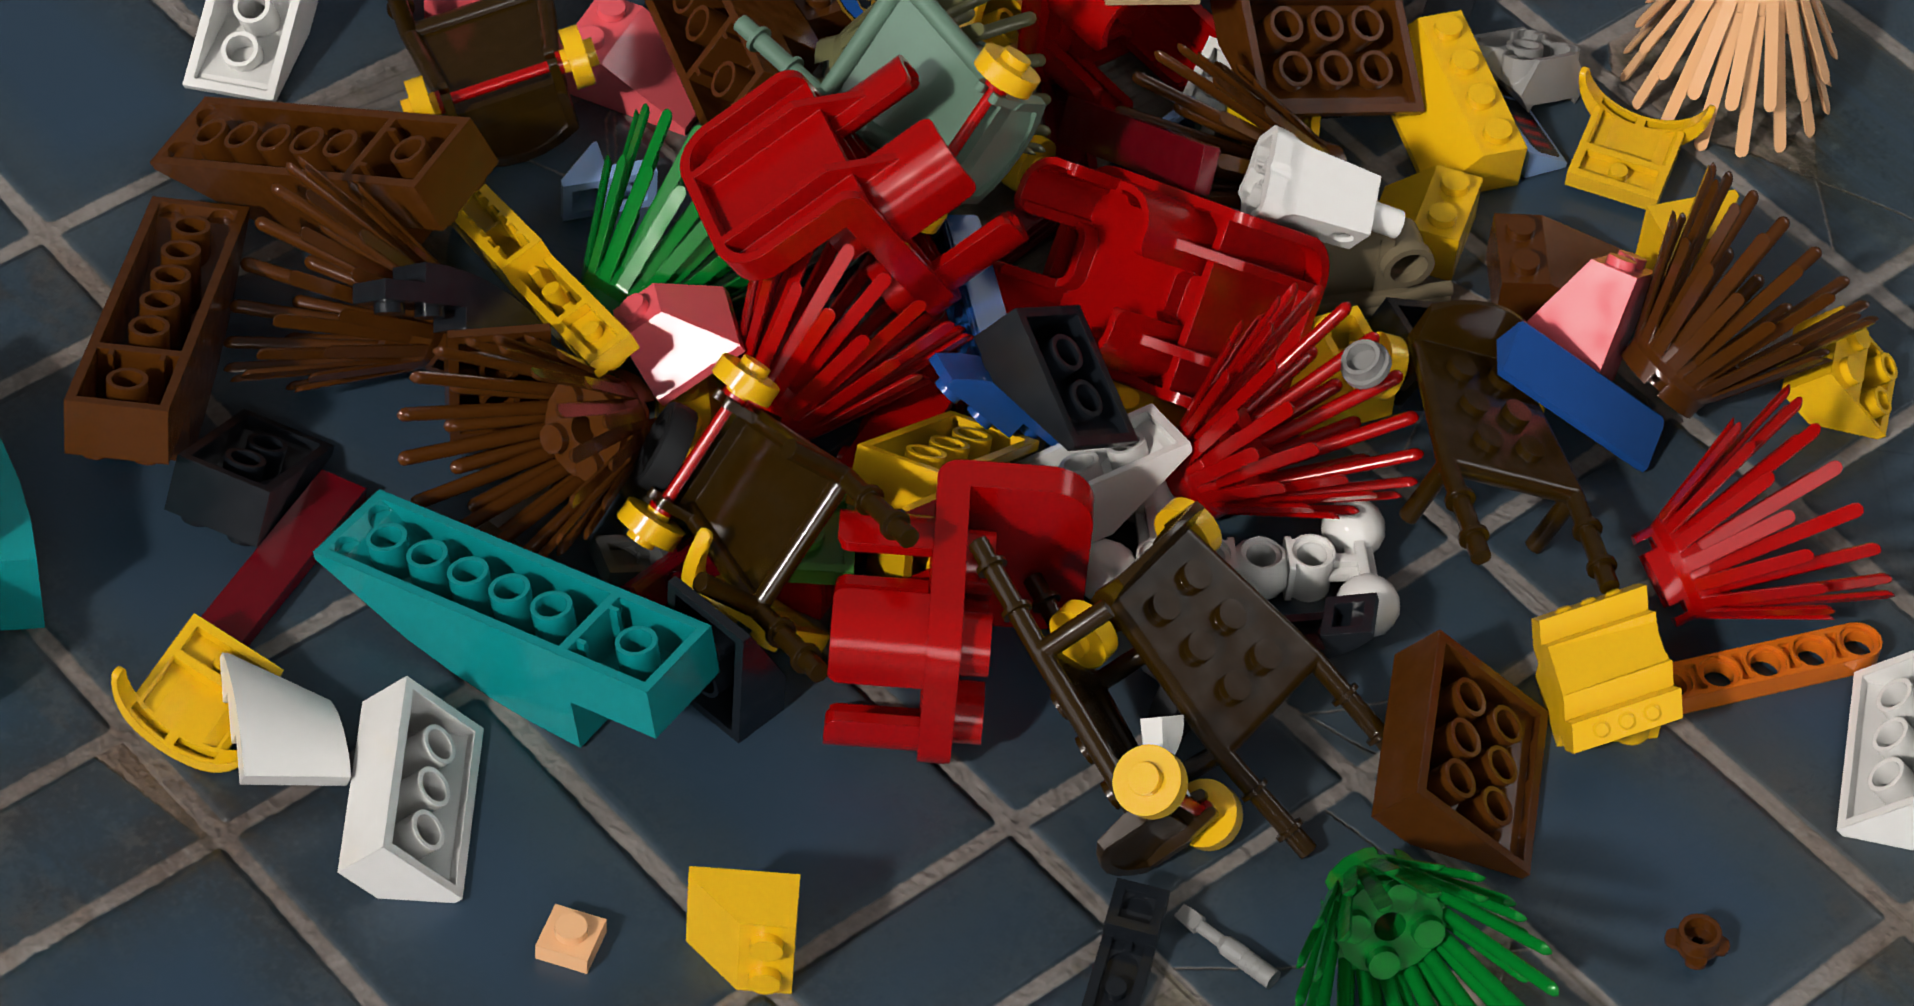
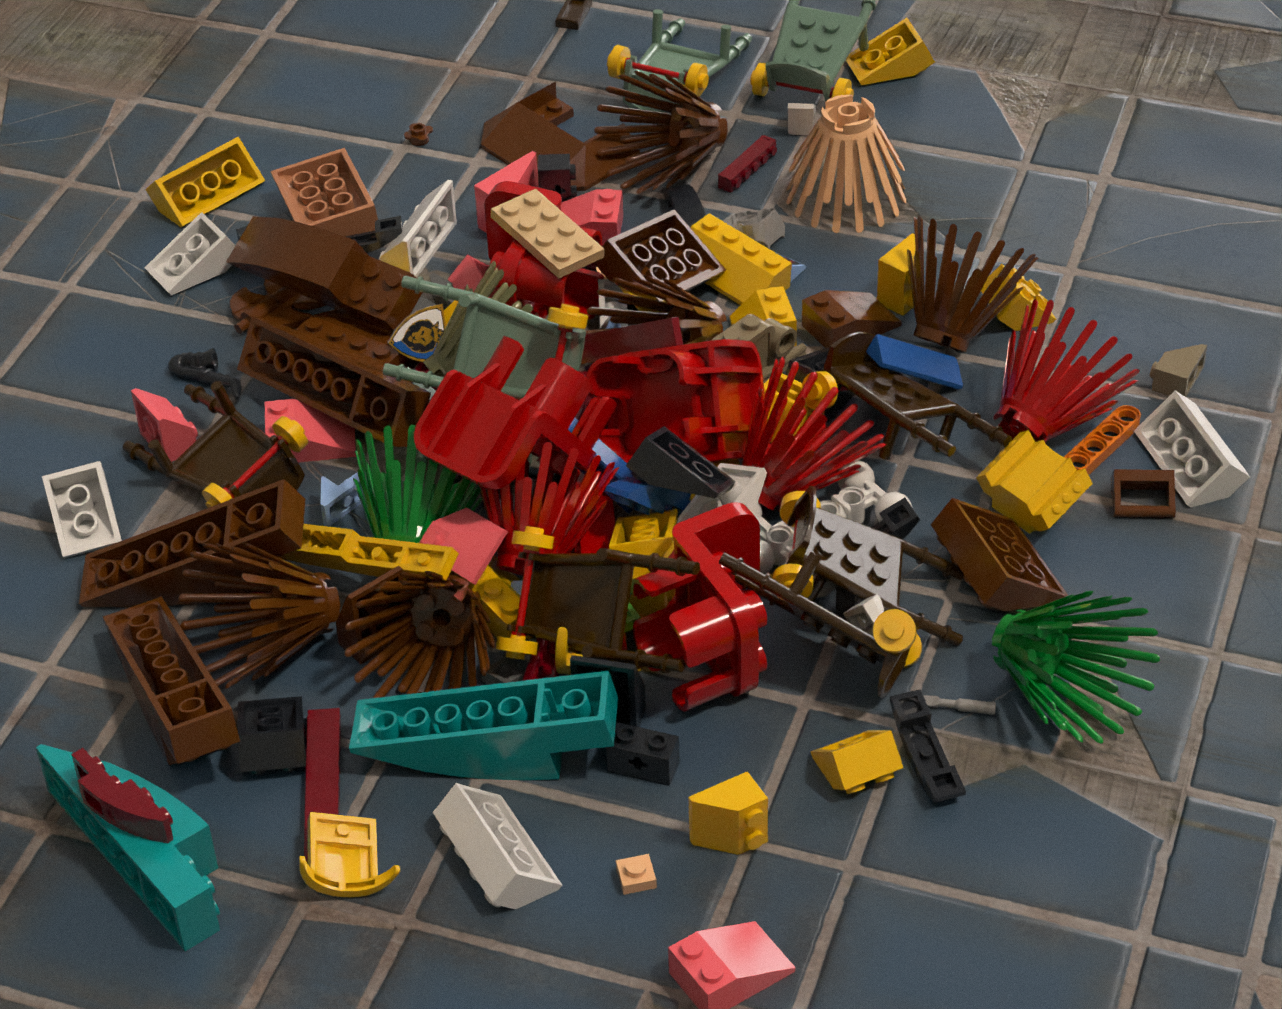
camera: 25 degrees left, 5 degrees down
(282, 729) = (405, 847): white slope -> none
(444, 295) = (328, 581): black slope -> none
(665, 447) = (501, 589): black tyre -> none
(711, 773) = (643, 754): none -> black brick
(1004, 947) = (858, 760): none -> yellow slope
(1314, 192) = (731, 318): white piece -> none
(1365, 364) = (823, 388): light grey plate -> none
(1597, 310) = (894, 314): coral slope -> none
(1626, 152) = (832, 247): yellow piece -> none
(1698, 929) = (1172, 586): reddish brown plate -> none
(1788, 752) = (1143, 480): none -> reddish brown tile

